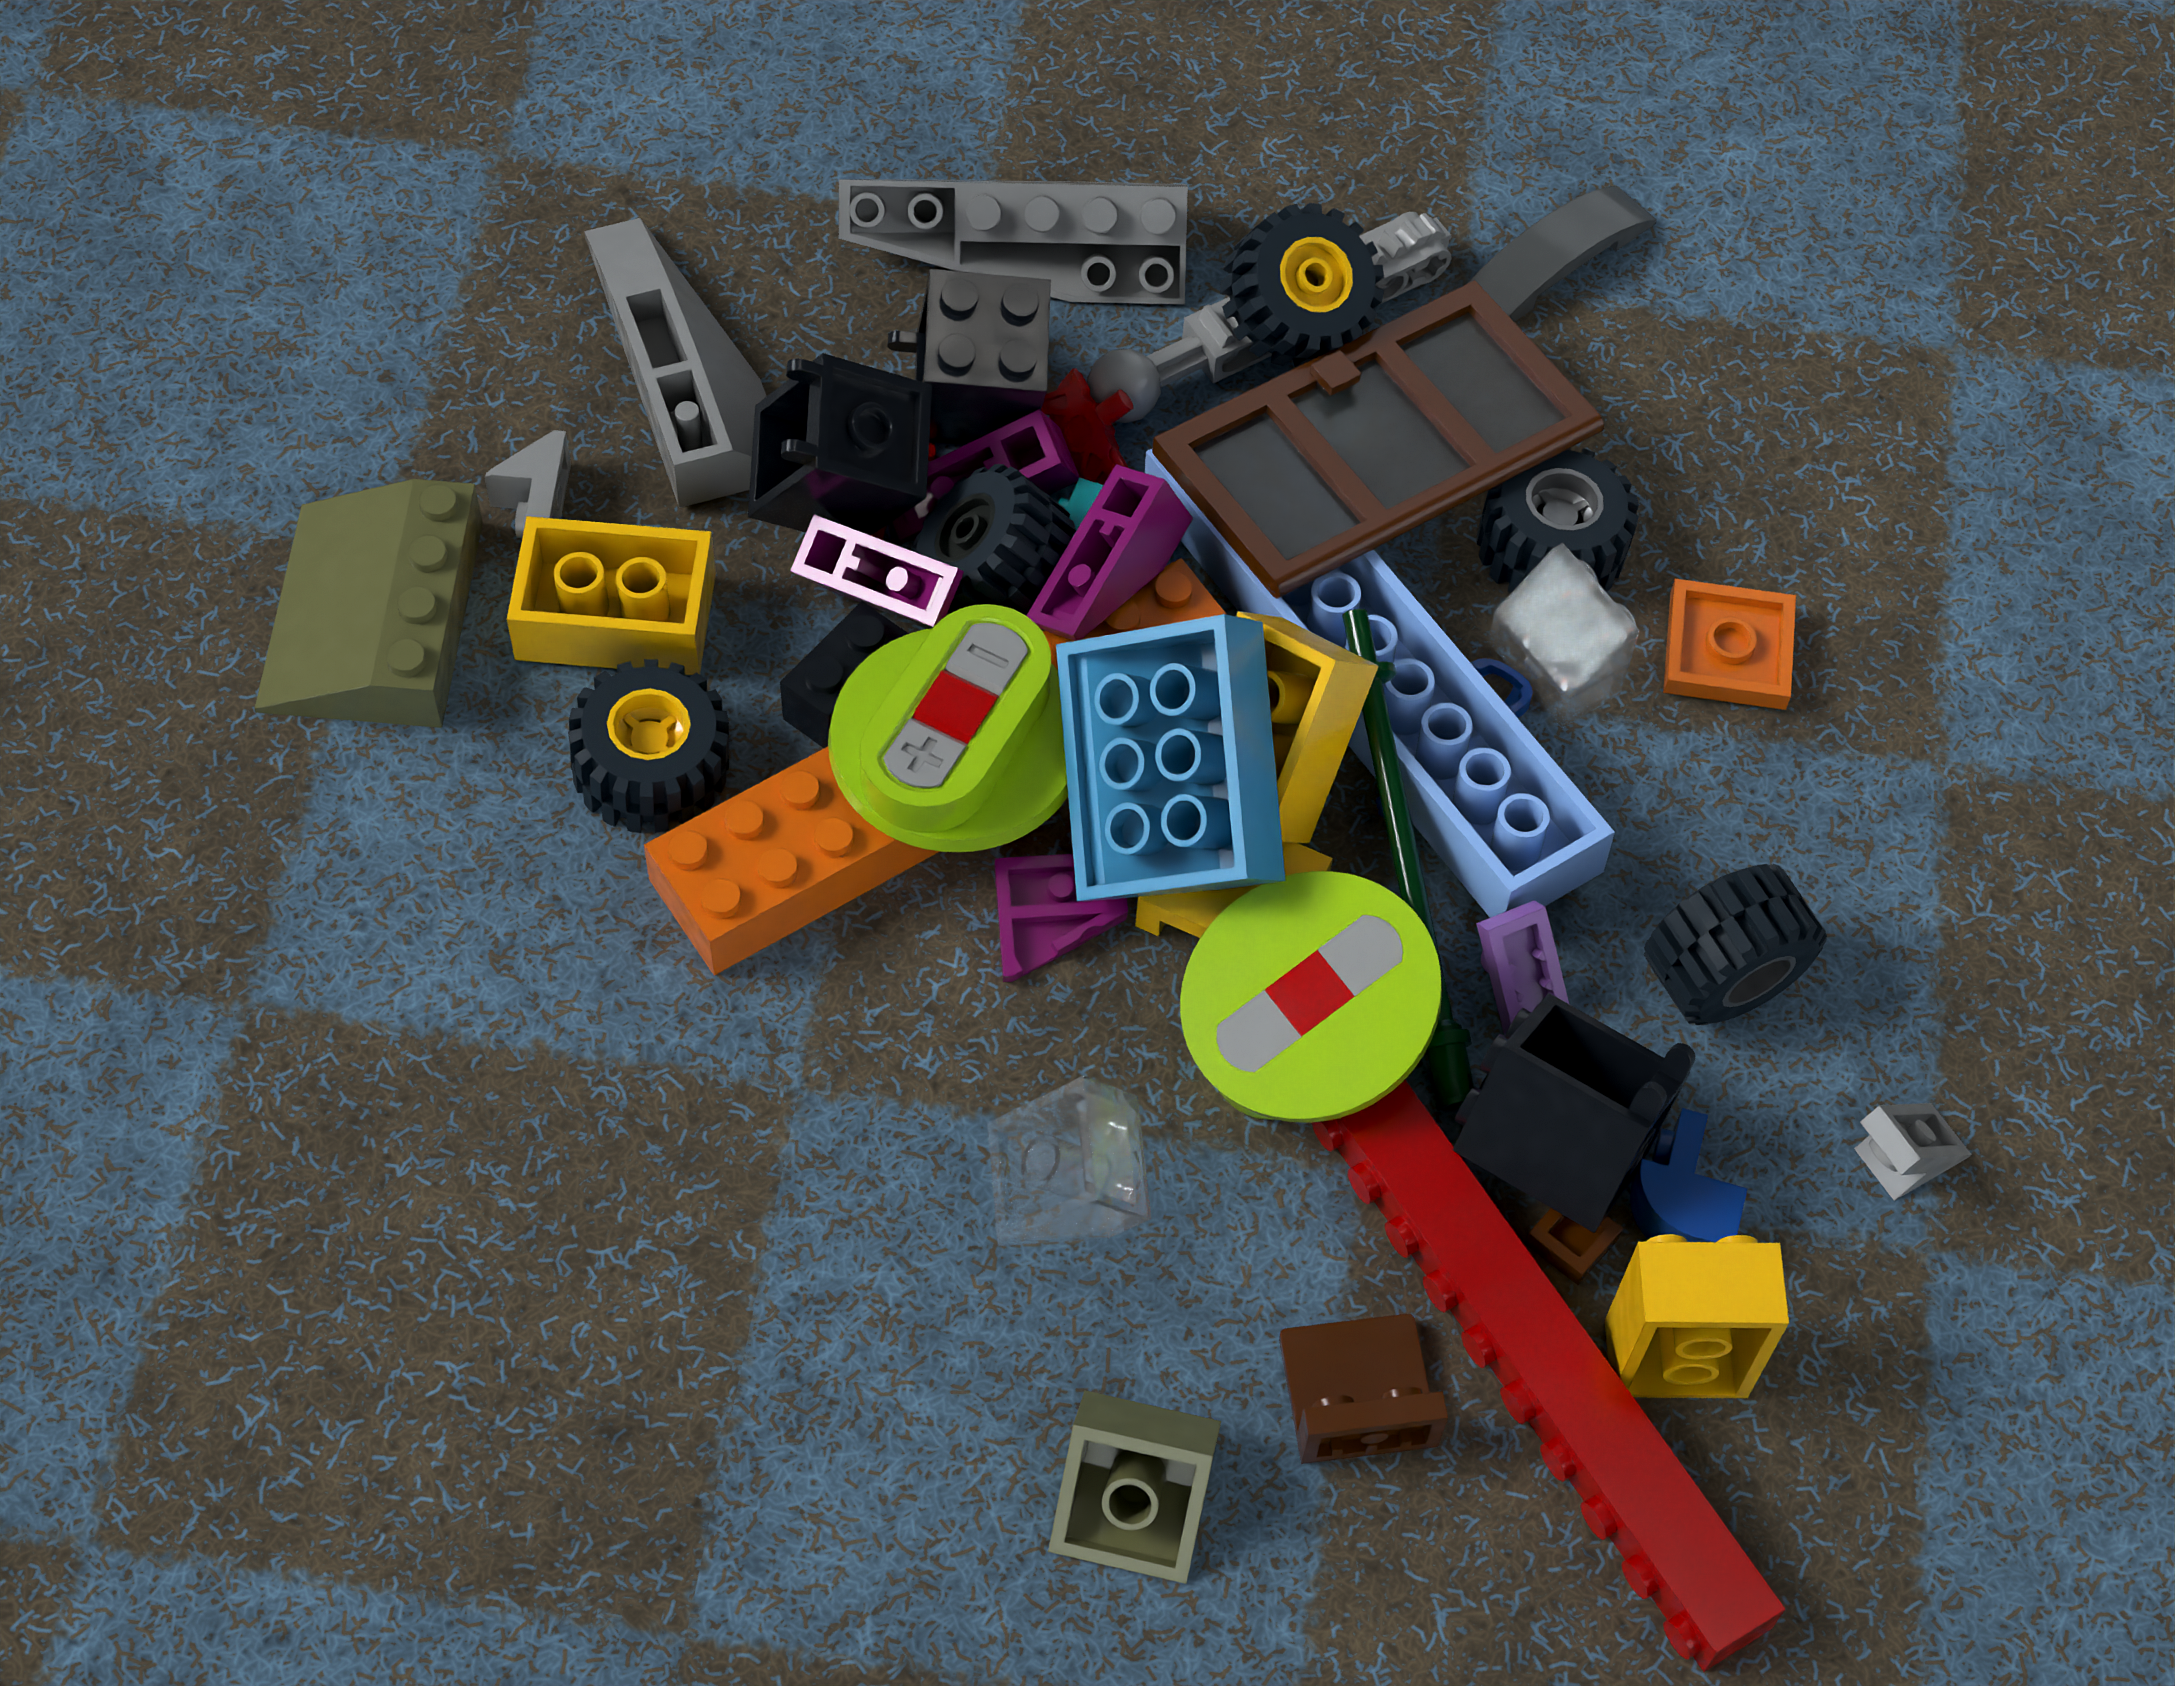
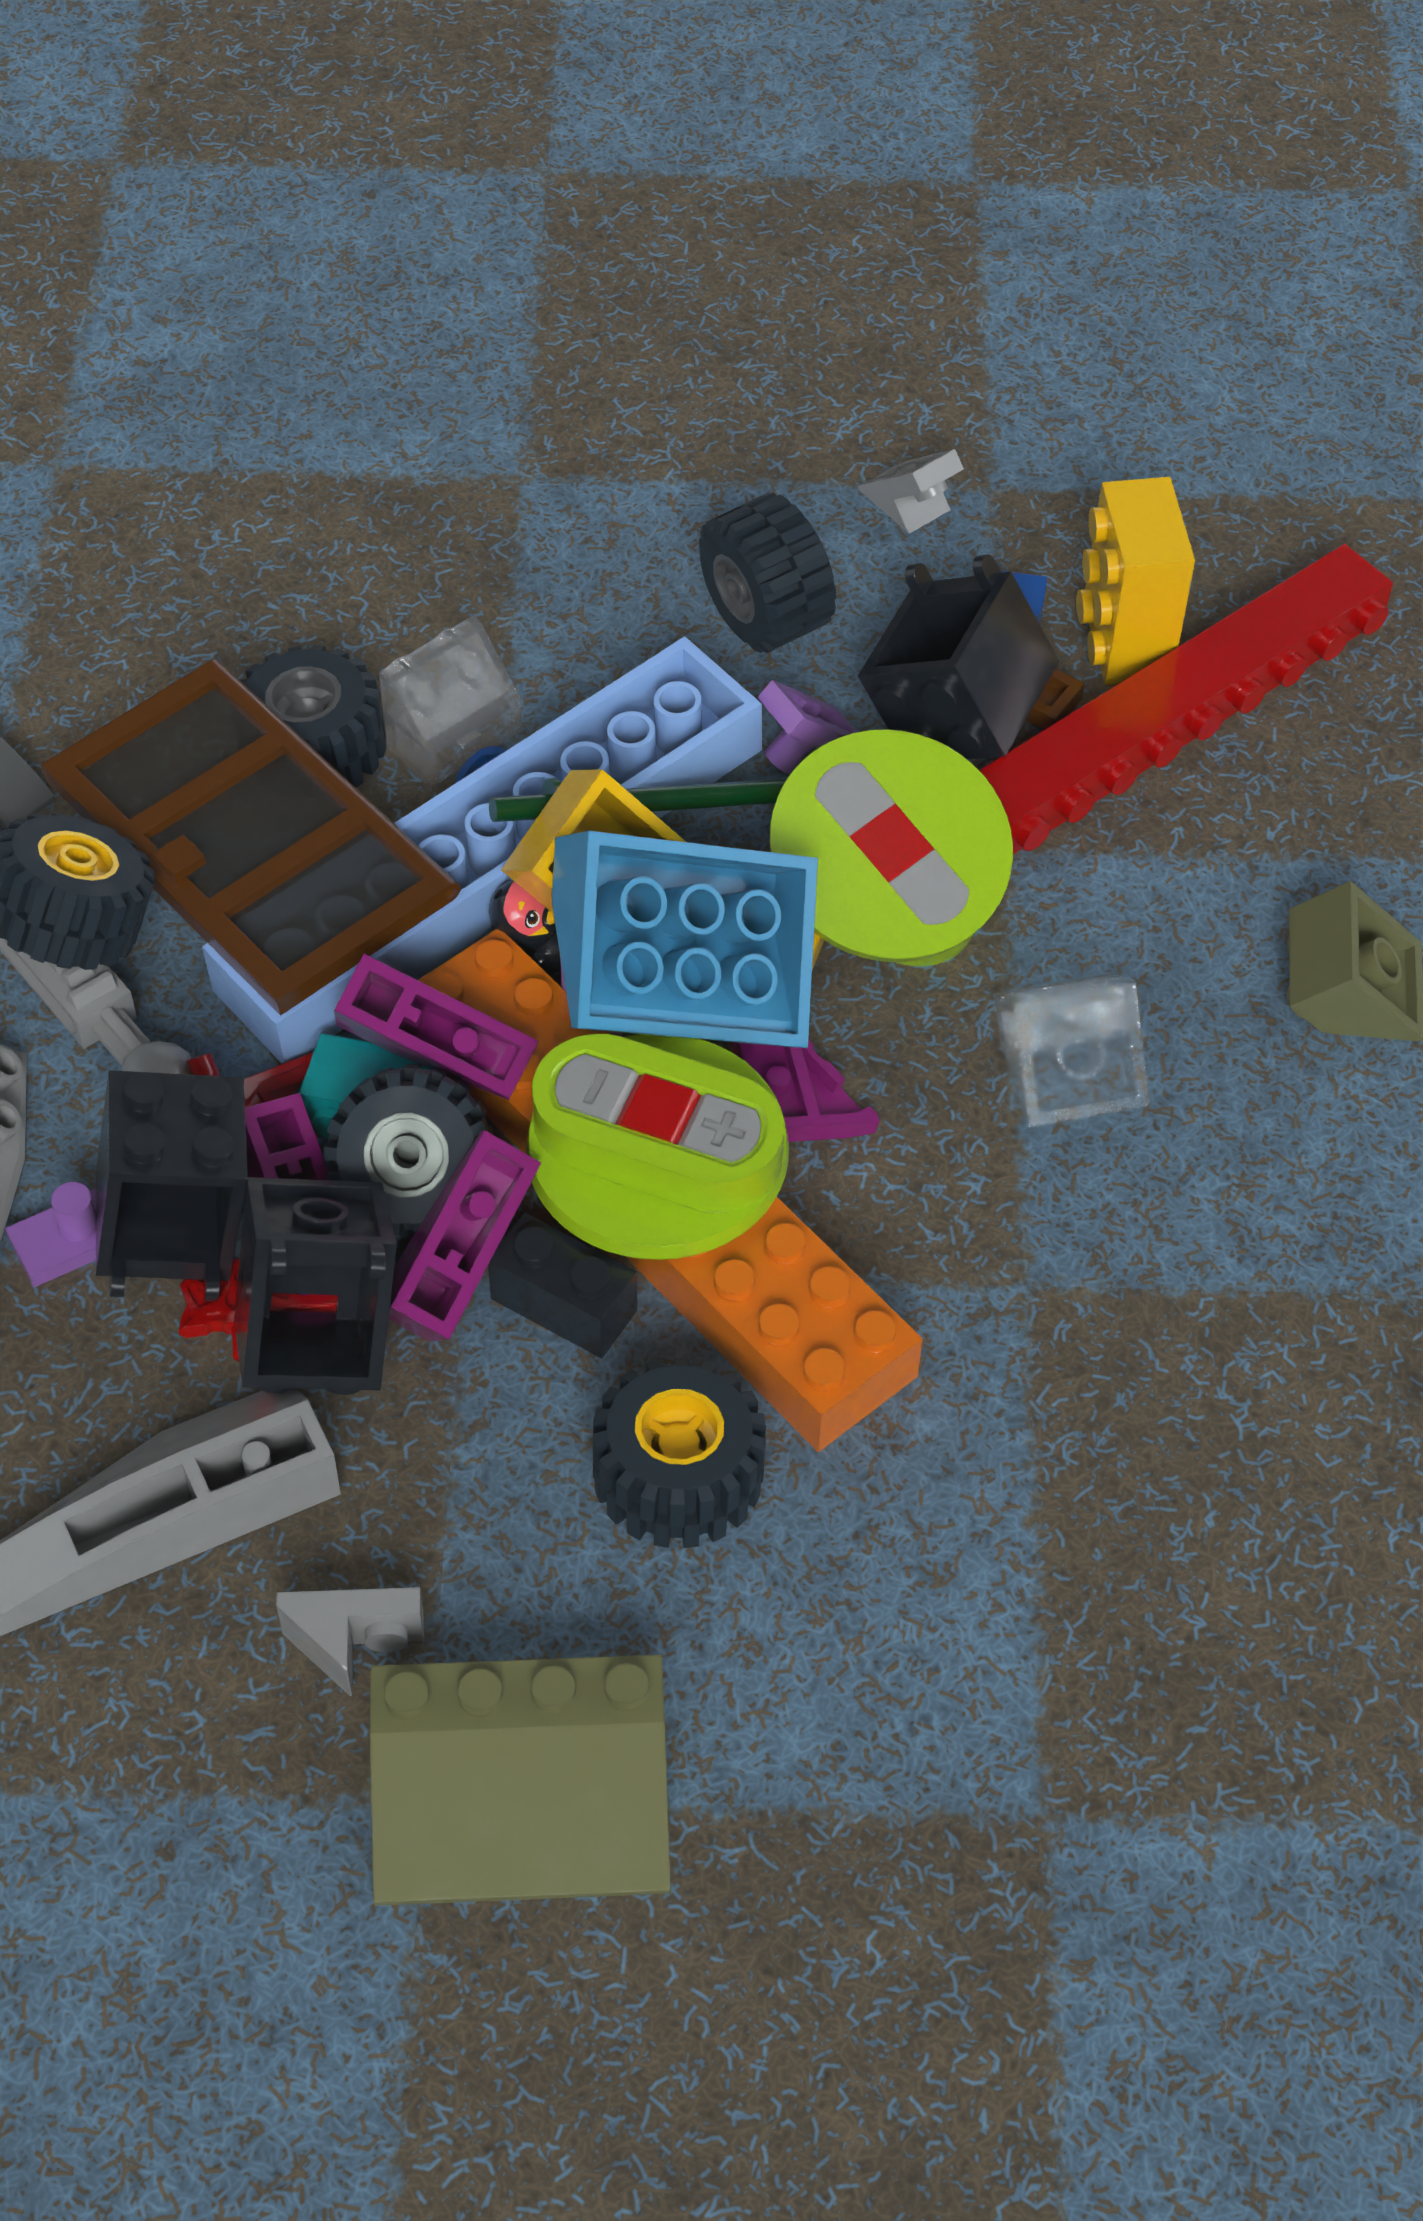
camera: 95 degrees left, 5 degrees down
(611, 594) = (492, 1515): yellow brick -> none
(1360, 1389) = (1231, 826): reddish brown bracket -> none
(1730, 644) = (415, 601): orange plate -> none

